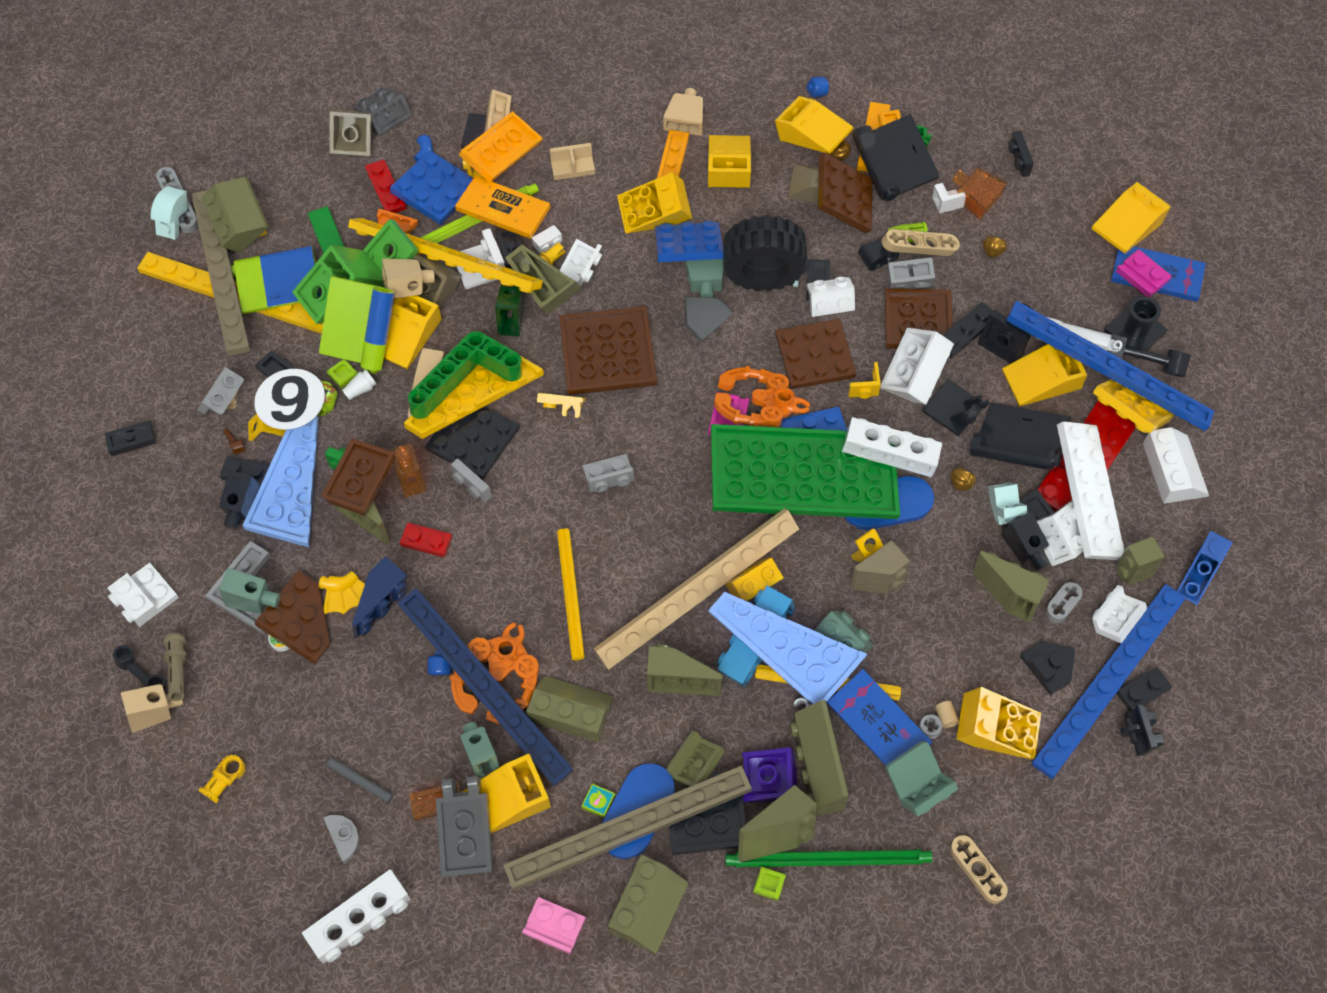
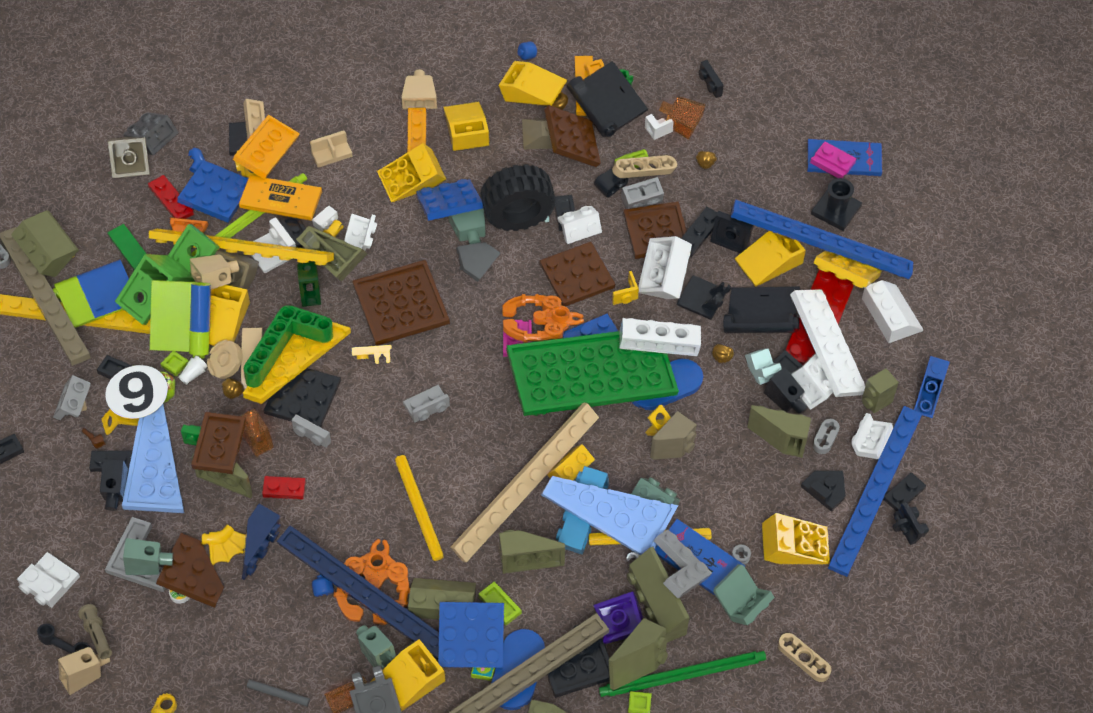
camera: 15 degrees left, 5 degrees down
(396, 379) = (224, 359): none -> tan tile
(396, 414) = (232, 388): none -> pearl gold piece
(590, 760) = (471, 635): none -> blue plate
(635, 727) = (495, 594): none -> lime tile
(694, 760) = (555, 619): olive bracket -> none
(867, 734) = (692, 570): none -> light grey plate
(947, 714) = (752, 541): tan hinge -> none
(1131, 218) = (813, 116): yellow slope -> none
(1174, 363) = (873, 228): black piece -> none

